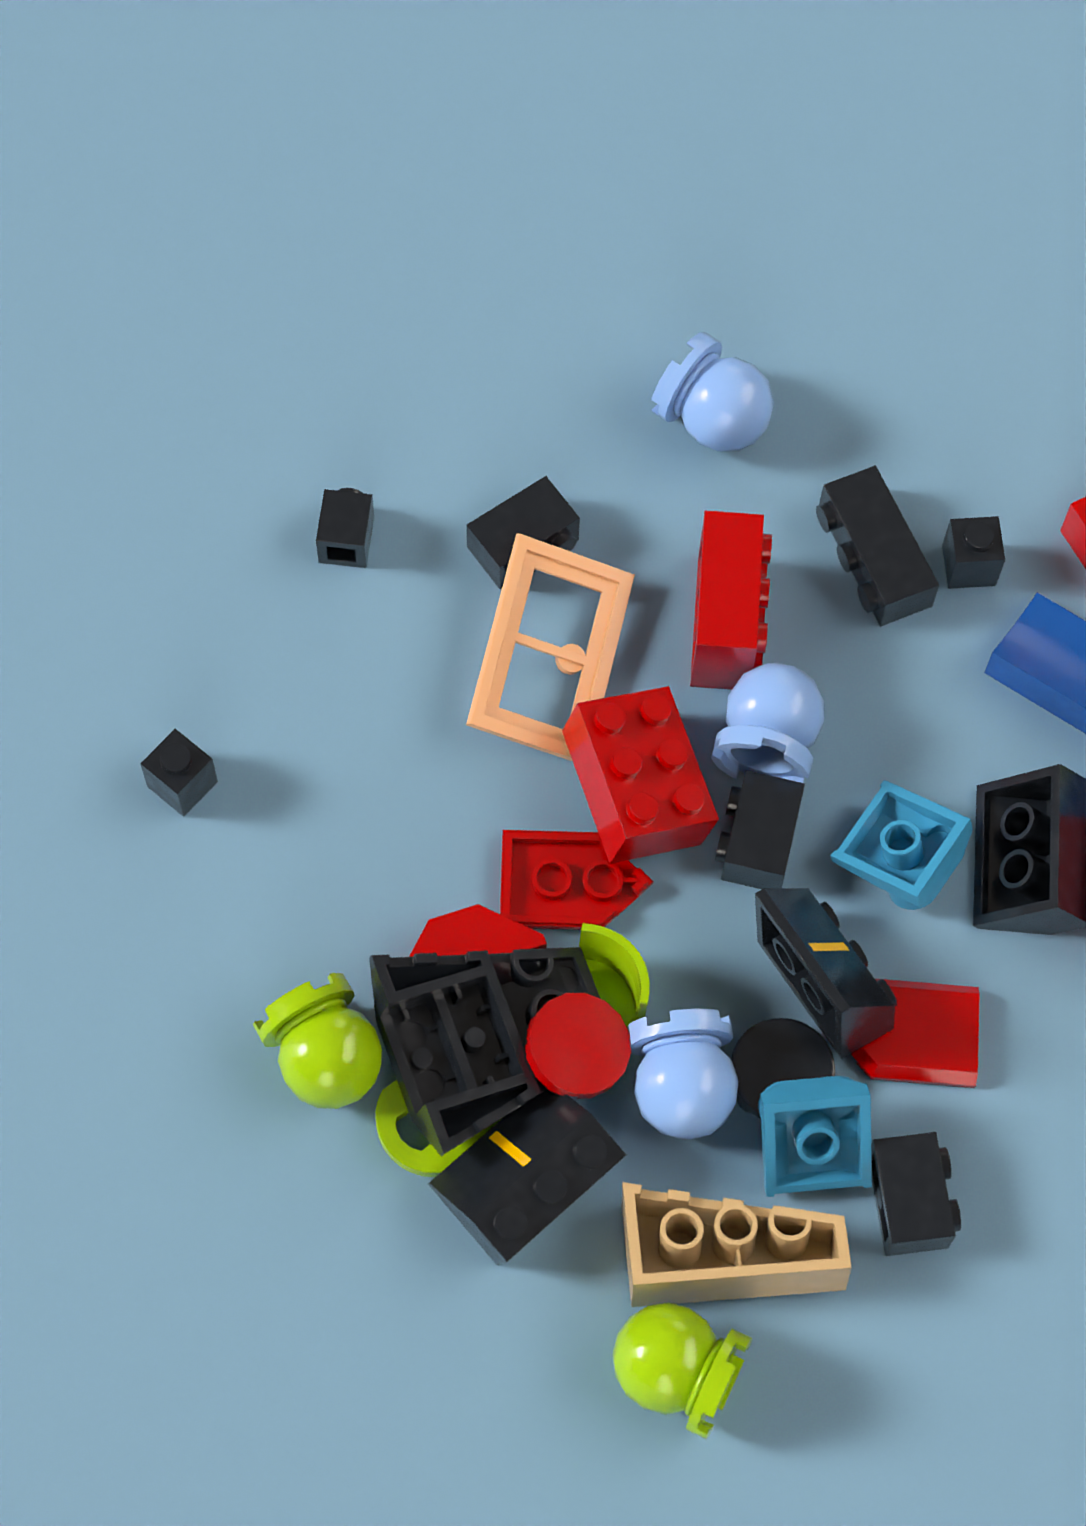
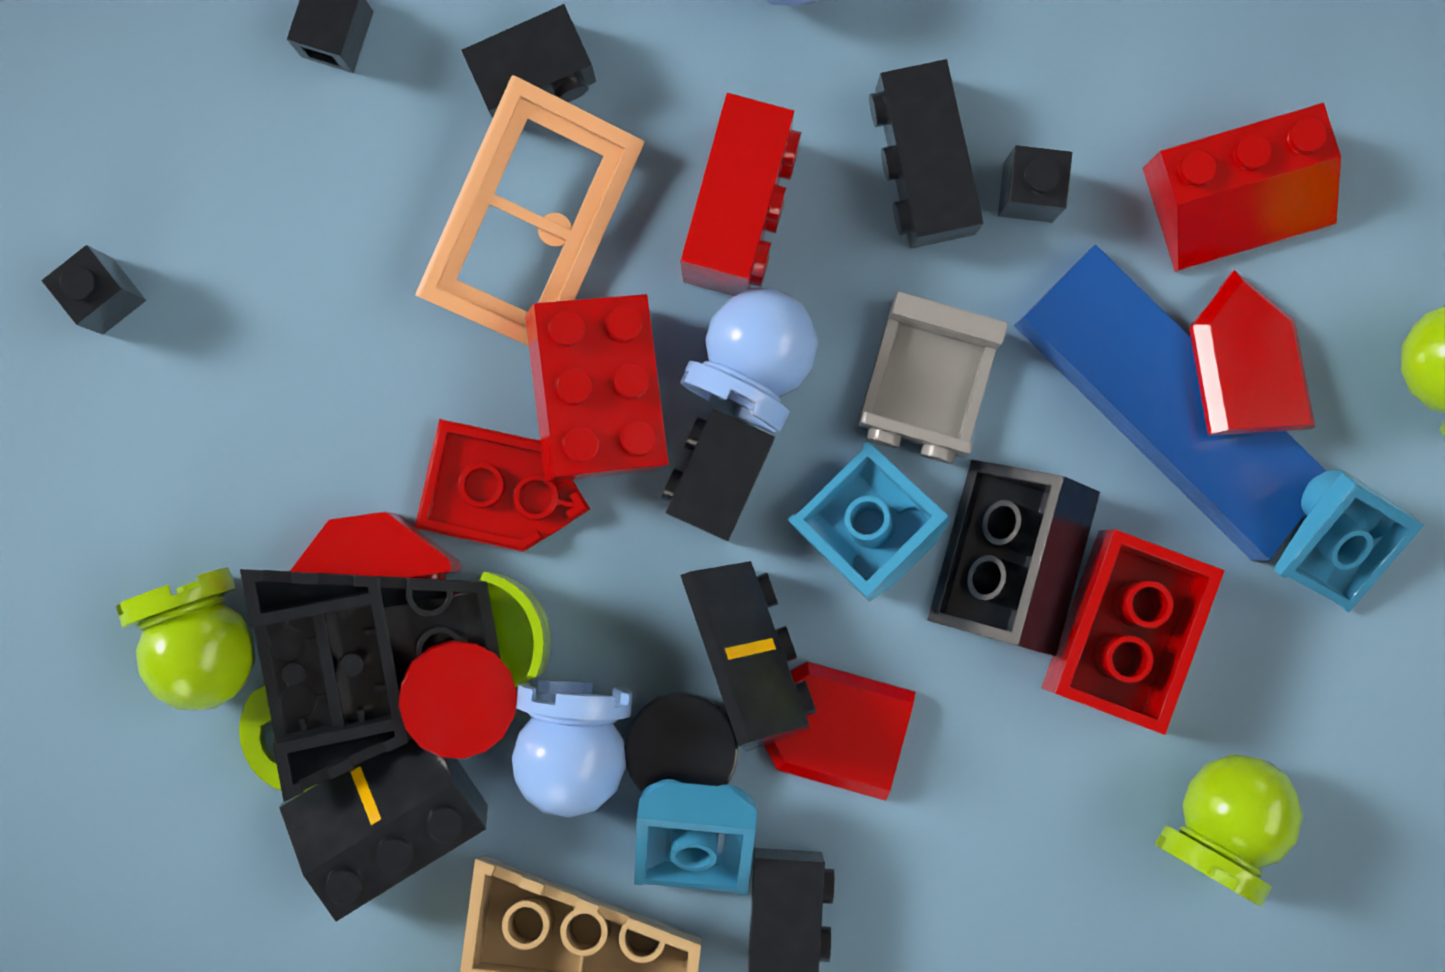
camera: 15 degrees right, 20 degrees up
(924, 719) = (930, 377): none -> light grey panel

